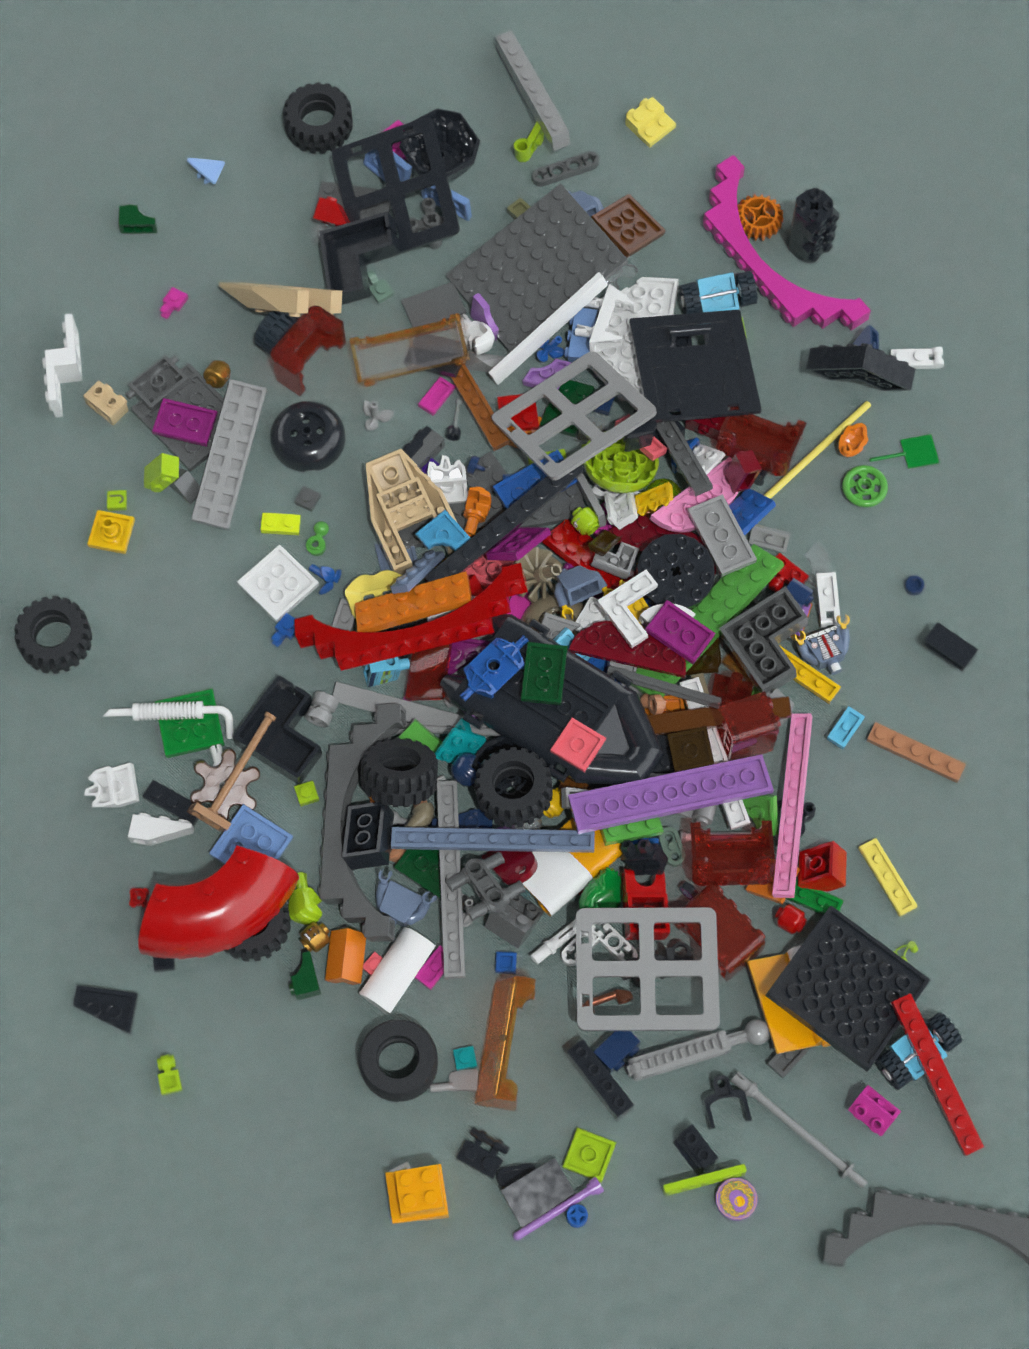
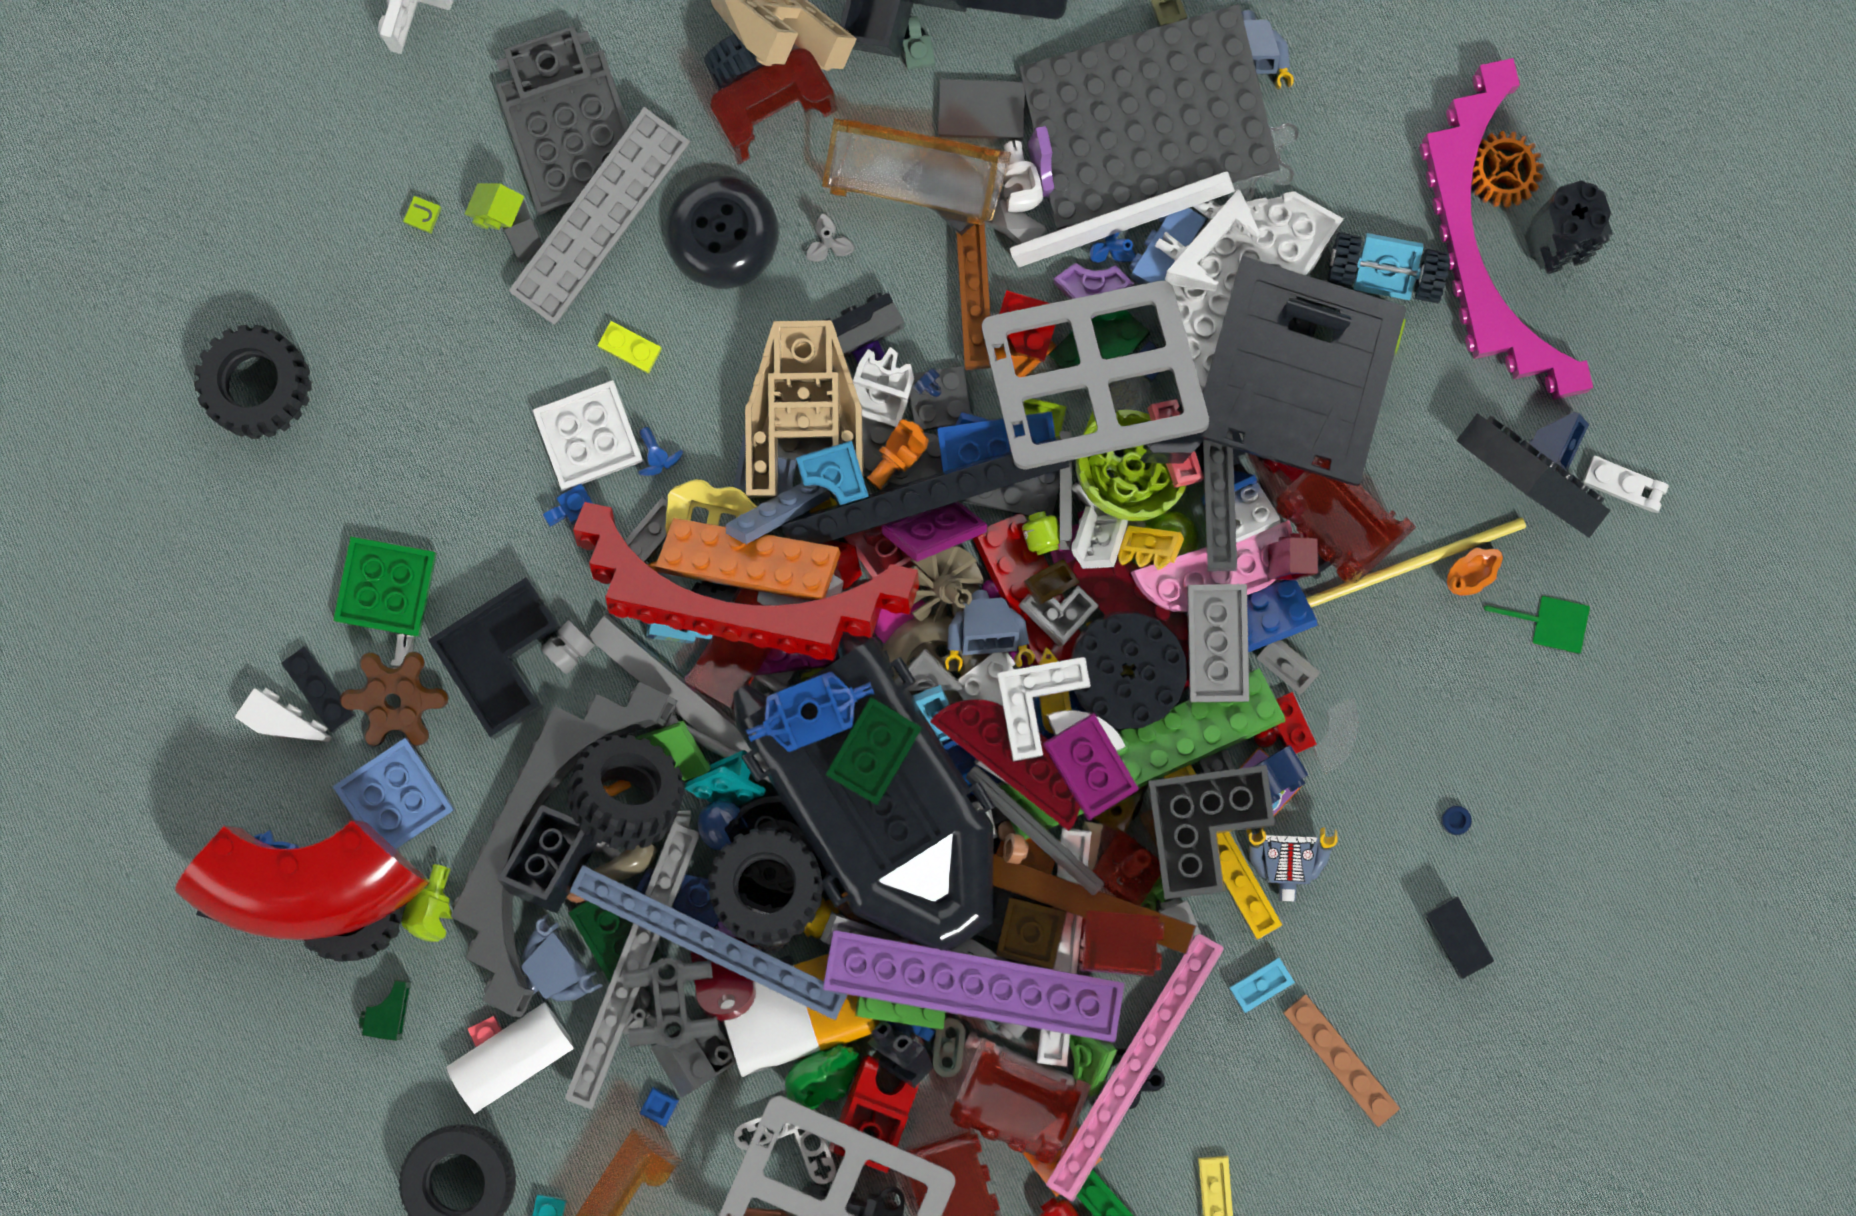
camera: 25 degrees right, 15 degrees up
(105, 402) = (465, 61): tan brick -> none
(107, 1005) = (119, 934): black wing -> none
(111, 532) = (394, 259): yellow plate -> none
(113, 786) = (248, 634): white plate -> none
(134, 893) = (211, 805): red plate -> none
(169, 1080) = (156, 1071): lime plate -> none
(174, 711) = (368, 566): white piece -> none
(185, 422) = (559, 141): magenta tile -> none
(210, 815) = (352, 738): medium nougat tile -> none
(217, 373) = (635, 84): pearl gold head -> none
(306, 793) = (499, 754): lime plate -> none
(307, 498) = (681, 325): dark grey plate -> none
(314, 937) = (423, 962): pearl gold head -> none
(321, 529) = (680, 381): bright green plate -> none
(345, 956) = (451, 1008): orange piece -> none
(432, 970) = (557, 1075): dark pink plate -> none
(436, 396) = (925, 248): dark pink tile -> none
(454, 432) = (925, 313): black hinge -> none
(551, 945) = (729, 1111): white pin -> none
(578, 745) = (875, 871): coral tile -> none
(628, 225) = (1309, 104): reddish brown plate -> none
(688, 890) = (943, 1120): black tile -> none
(823, 867) = (1134, 1170): red slope -> none
(827, 598) = (1325, 790): white plate -> none
(862, 471) = (1438, 660): bright green plate -> none

